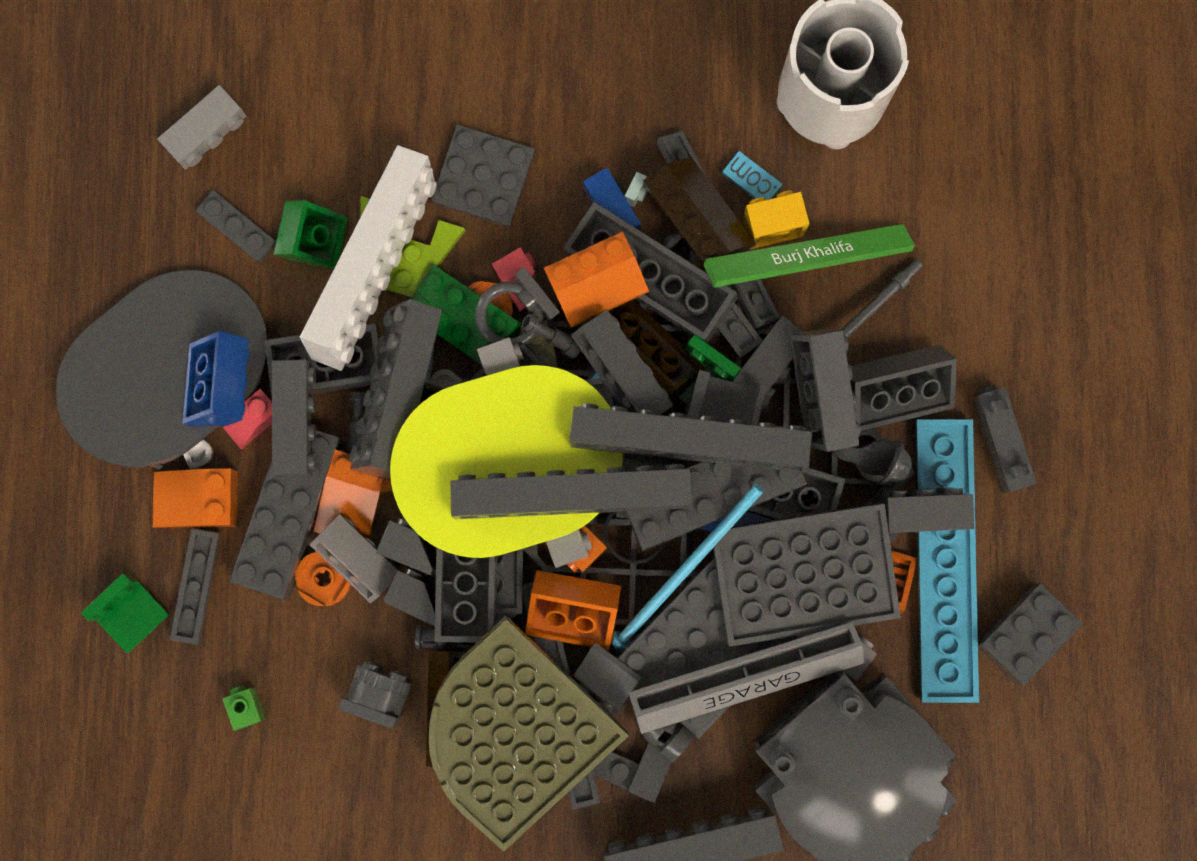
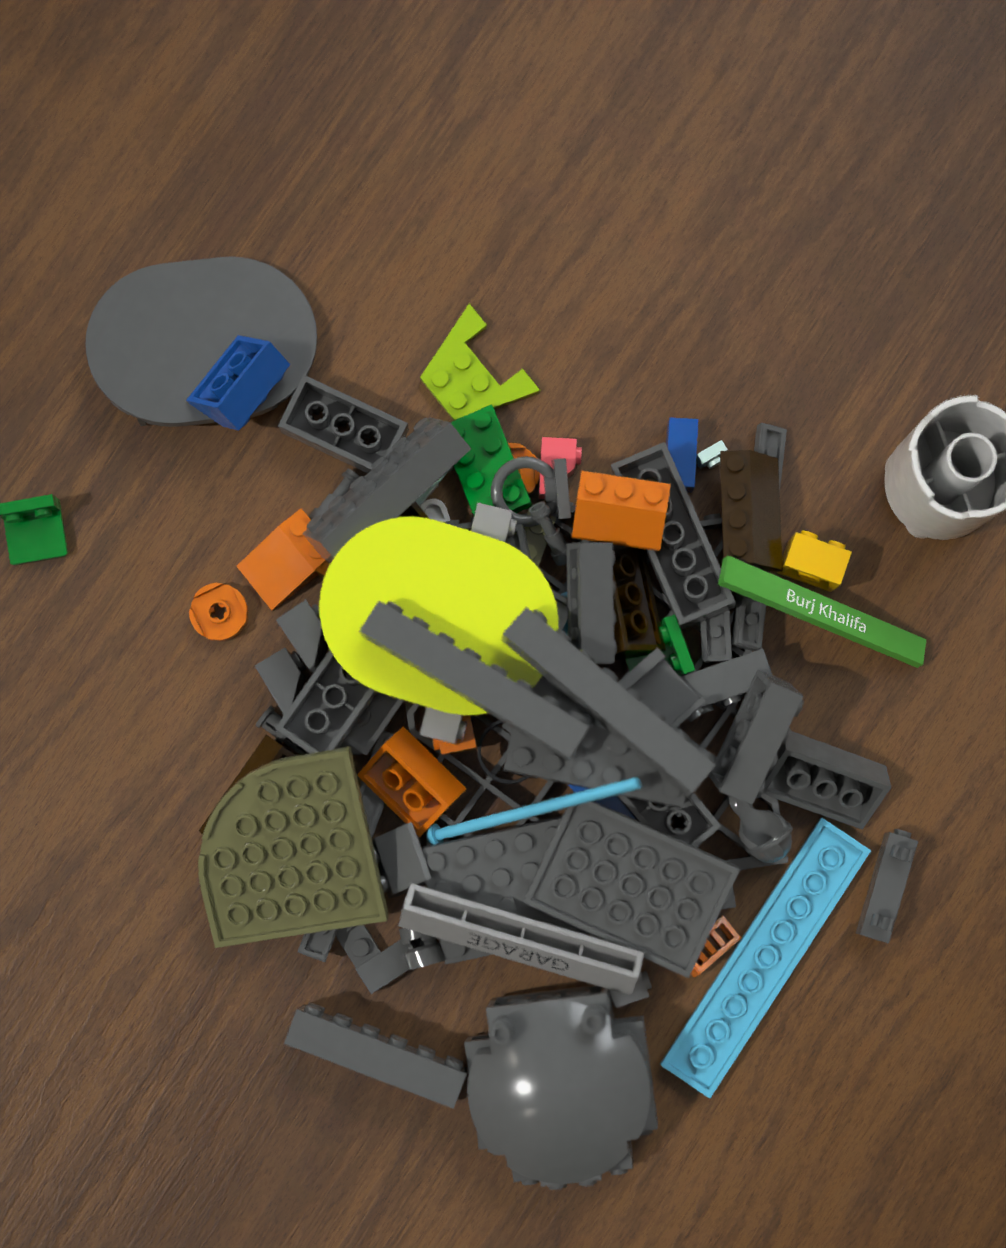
camera: 30 degrees right, 0 degrees up
(195, 498) = (155, 471): orange slope -> none
(195, 586) = (105, 546): dark grey plate -> none
(199, 455) = (183, 436): white tile -> none
(202, 127) = (372, 155): light grey brick -> none
(236, 227) = (345, 260): dark grey plate -> none
(243, 707) = (78, 677): bright green brick -> none
(255, 419) = (256, 435): coral slope -> none
(283, 525) = (224, 533): dark grey brick -> none
(292, 418) = (281, 458): dark grey brick -> none
(310, 234) = (404, 309): green slope -> none
(355, 558) = (256, 612): light grey brick -> none
(369, 259) = (439, 363): white brick -> none
(377, 694) = (197, 742): dark grey piece -> none
(483, 176) = (587, 355): dark grey plate -> none
(751, 177) = (819, 511): medium azure tile -> none
(897, 282) = (887, 687): dark grey bar -> none
(927, 510) = (774, 900): dark grey brick -> none
(1028, 634) = (793, 1069): dark grey brick -> none

